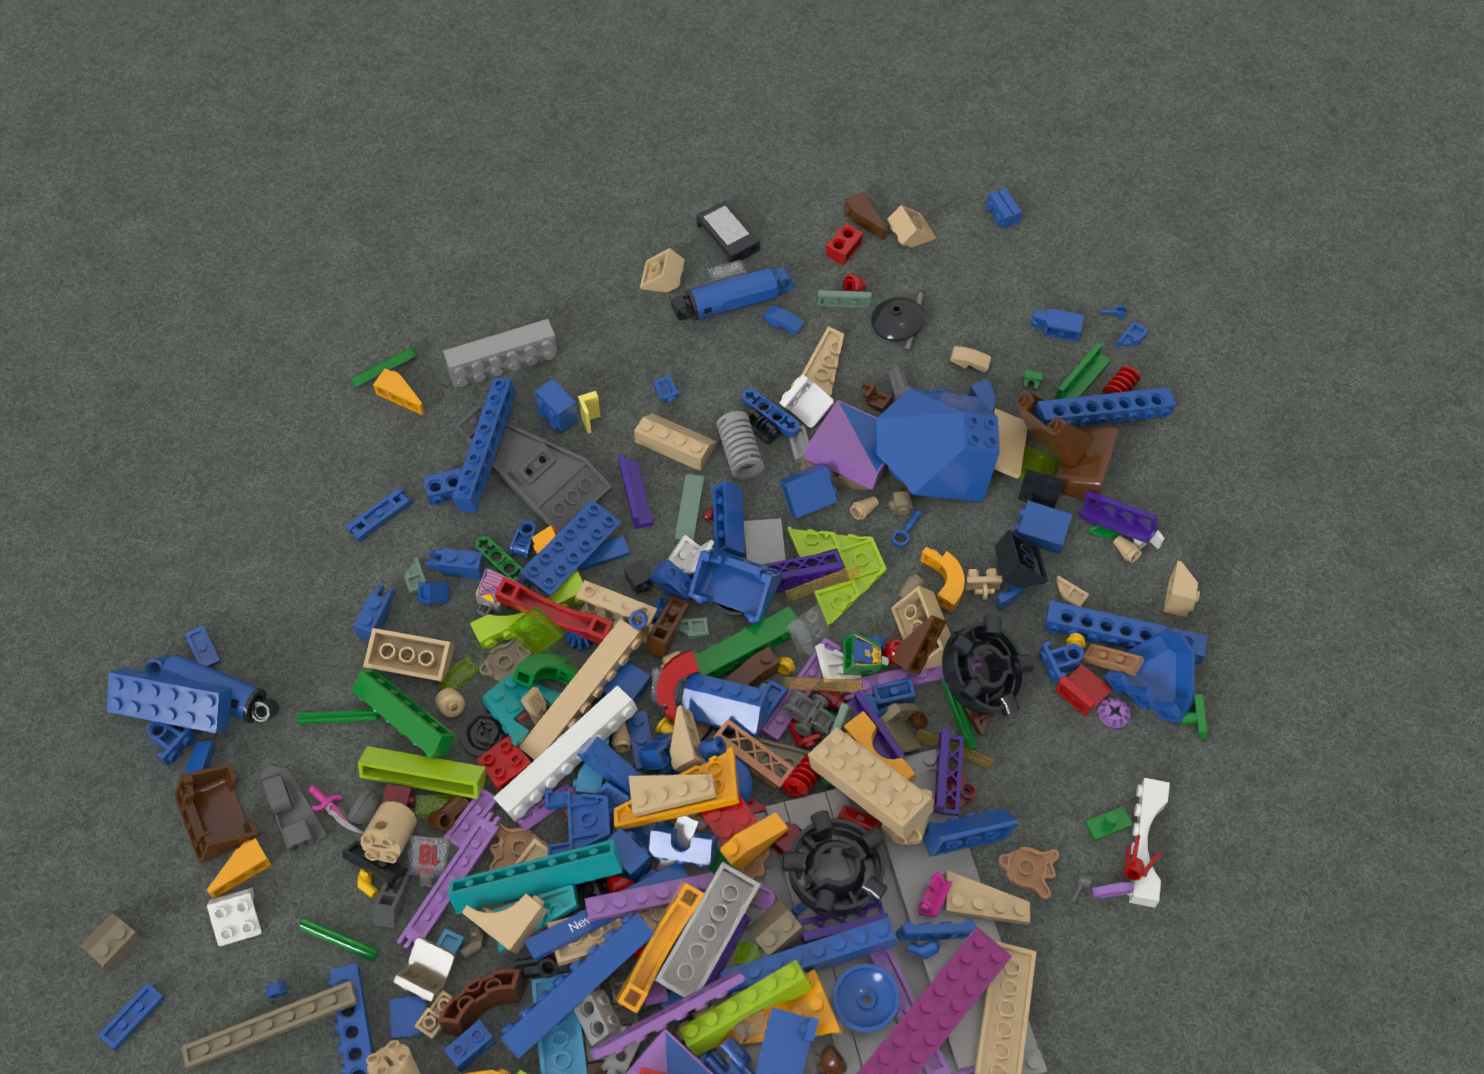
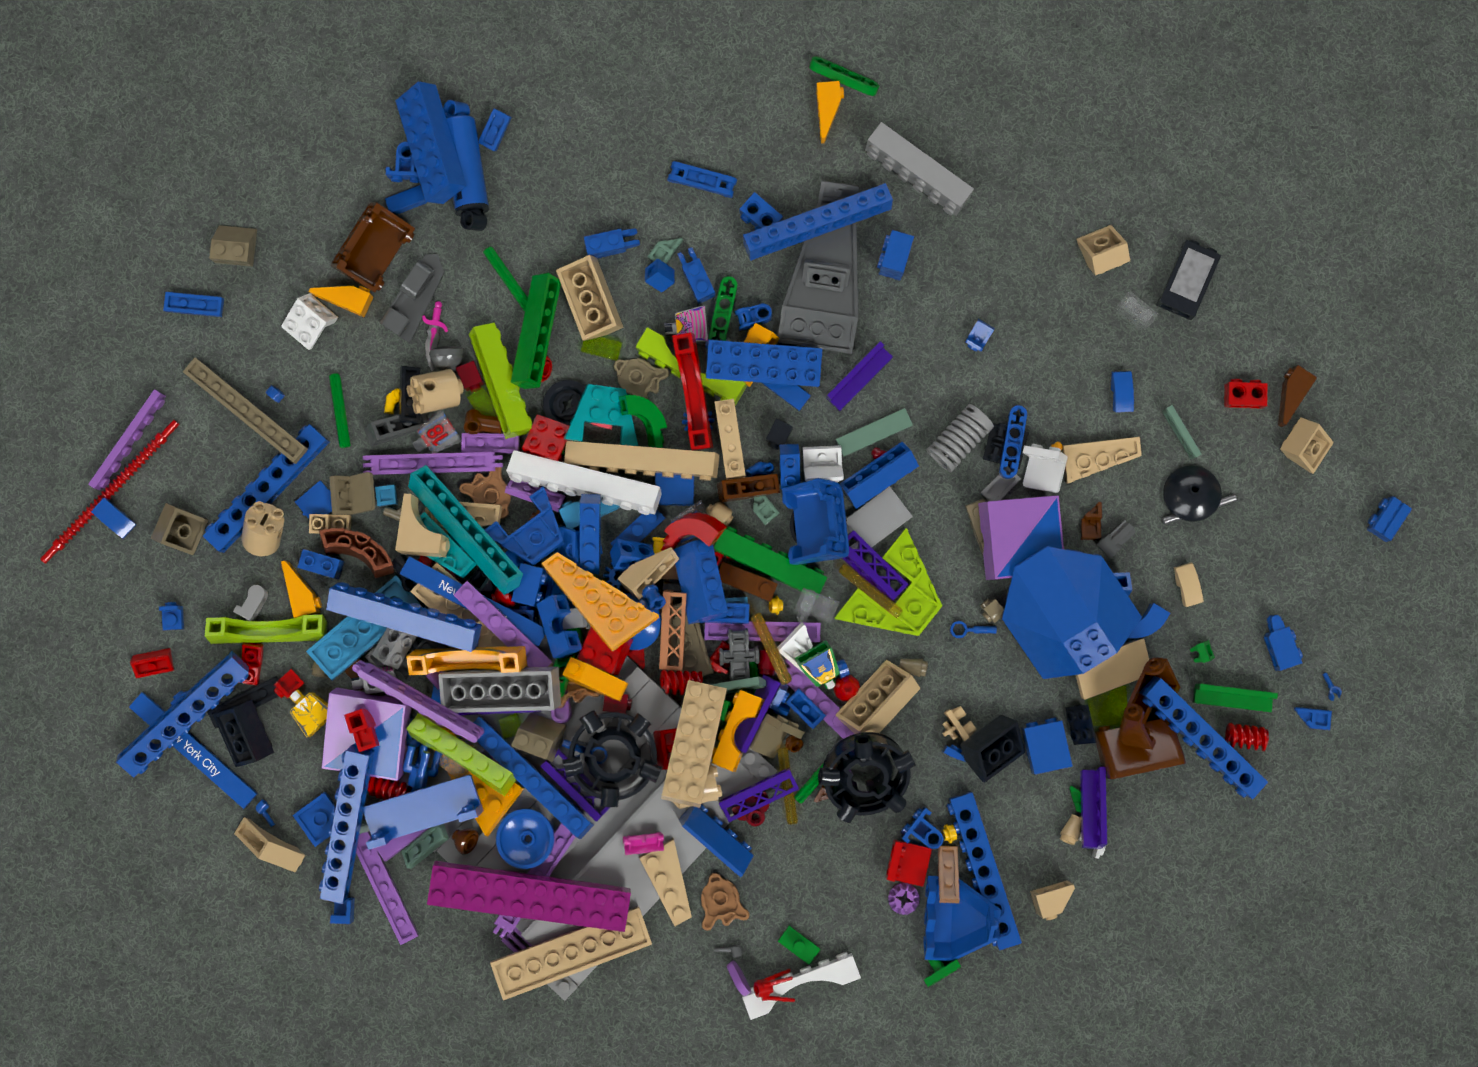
camera: 60 degrees right, 25 degrees up
(450, 700) = (571, 359): tan head -> none
(534, 704) = (610, 428): tan tile -> none
(536, 630) = (671, 386): clear neon green tile -> none
(589, 408) = (912, 282): light yellow panel -> none
(621, 740) = (626, 517): tan cone -> none
(632, 619) = (728, 467): blue axle -> none
(665, 792) = (587, 585): tan wing -> none
(674, 441) = (933, 377): tan slope -> none
(731, 293) = (1118, 329): blue piece -> none
(809, 490) = (950, 526): blue brick -> none
(853, 283) = (1202, 432): red brick -> none
(863, 507) = (967, 580): tan cone -> none
(917, 647) = (848, 708): reddish brown slope -> none
(925, 950) = (595, 861): blue arm -> none
(941, 931) = (619, 865): blue plate -> none
(952, 574) = (947, 697): light orange arch -> none
(1070, 593) = (997, 804): tan tile -> none

